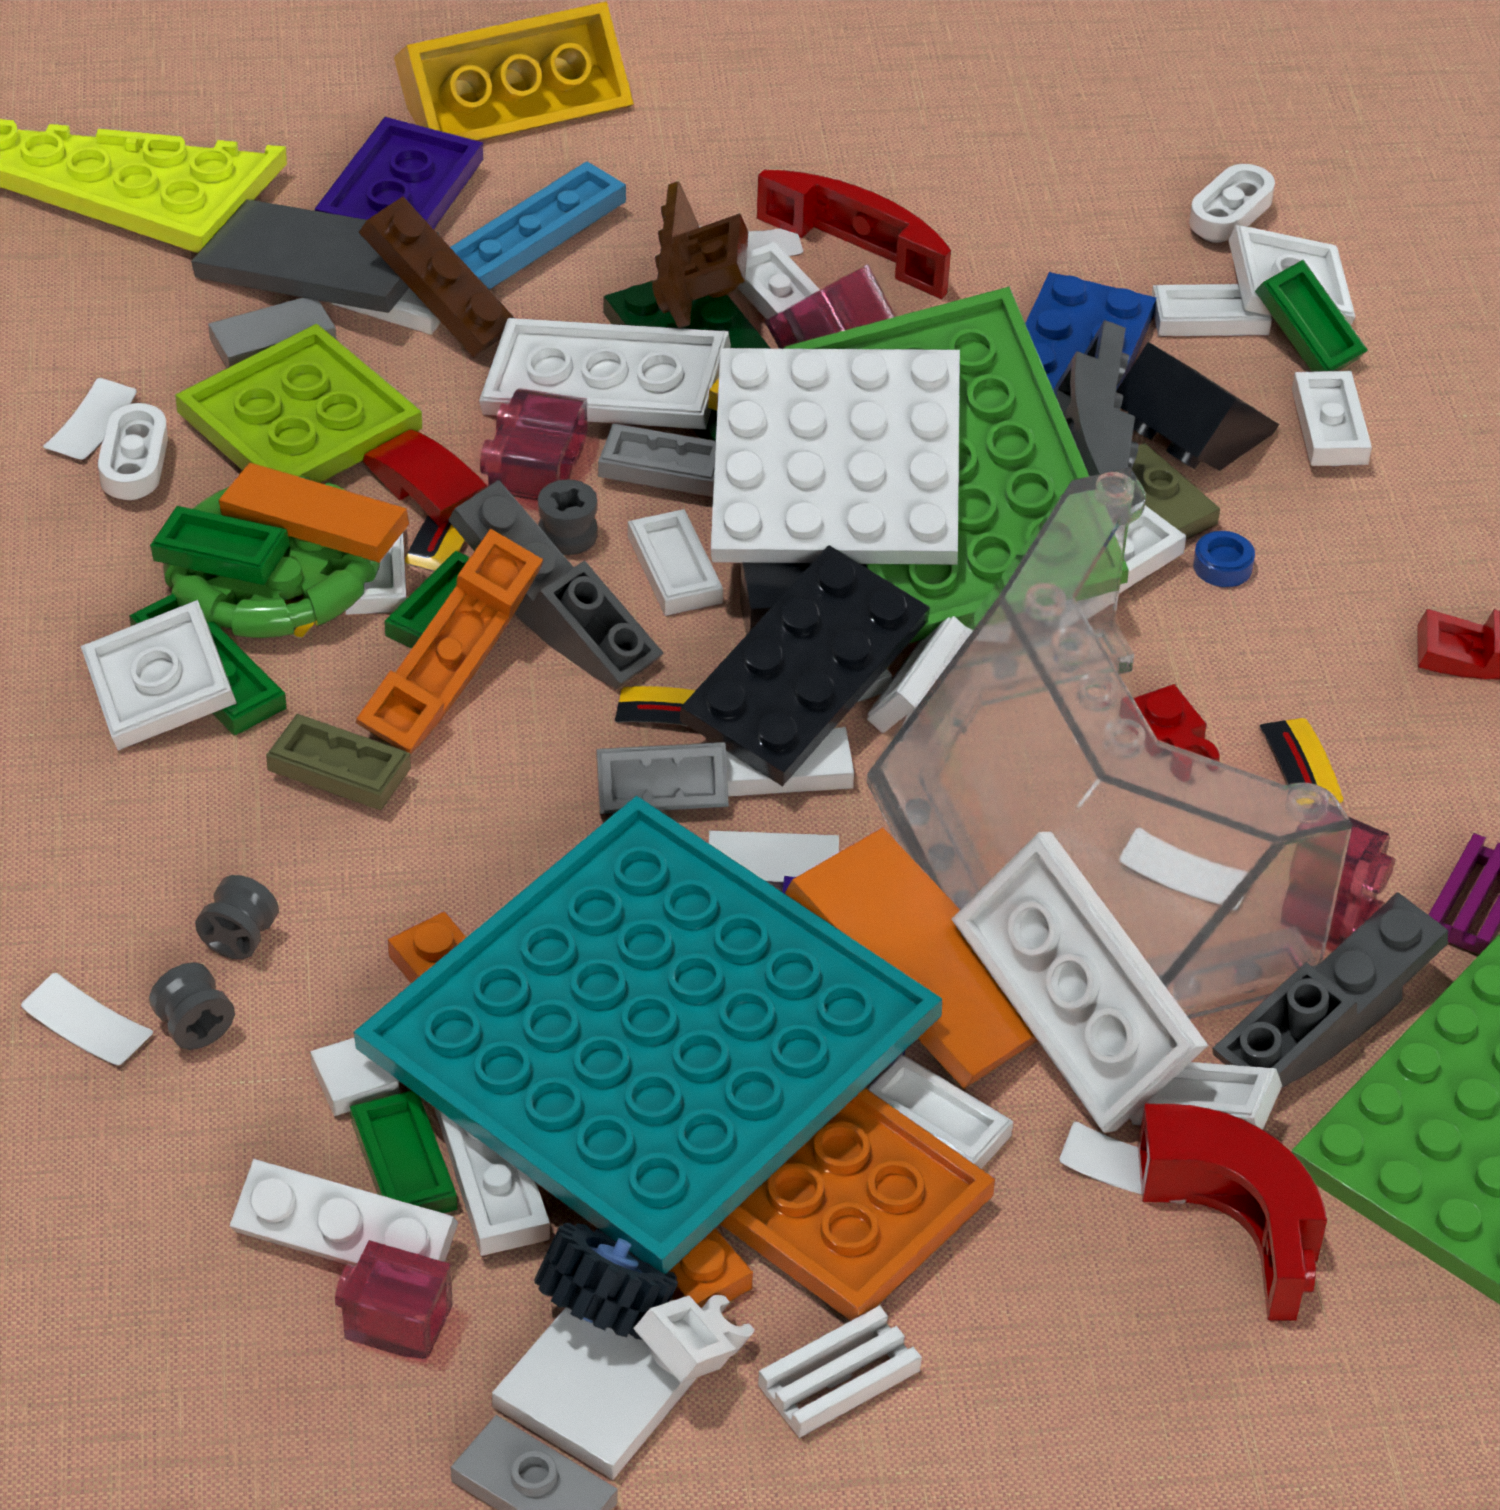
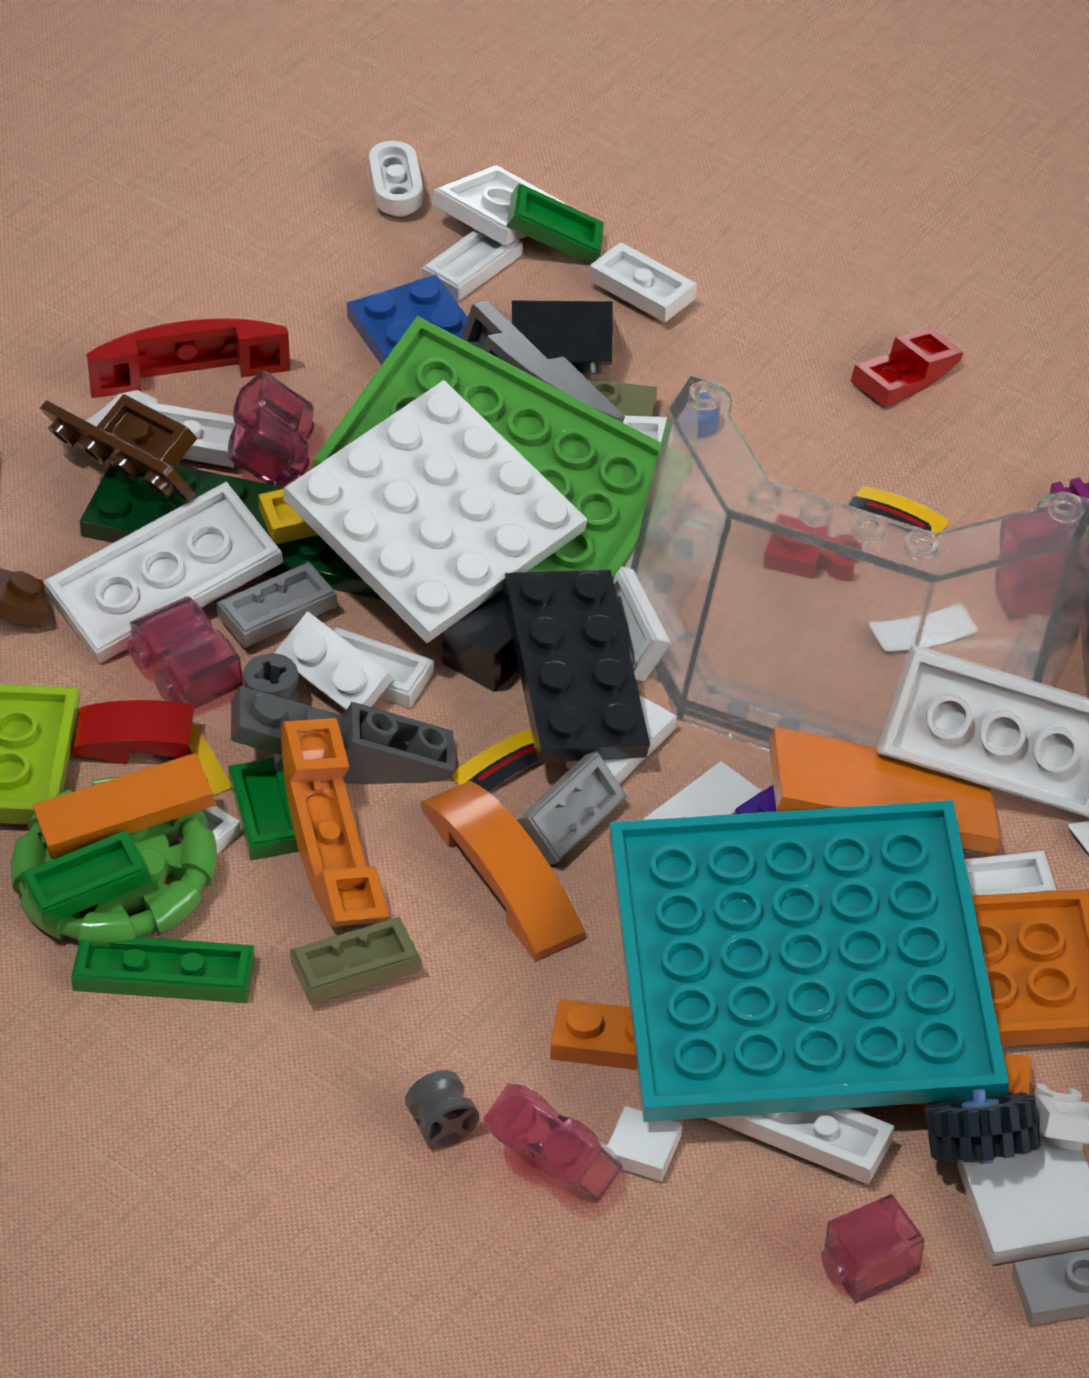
camera: 45 degrees left, 0 degrees up
(85, 1020) = (427, 1258): white sticker -> none
(158, 675) = (156, 999): white tile -> none
(191, 1006) = (496, 1186): dark grey wheel -> none
(266, 1006) = (553, 1142): none -> clear pink brick
(334, 1217) = (767, 1235): white plate -> none
(403, 1152) = (742, 1168): green tile -> none
(547, 784) = (510, 864): none -> orange slope
(631, 533) = (333, 664): none -> white plate

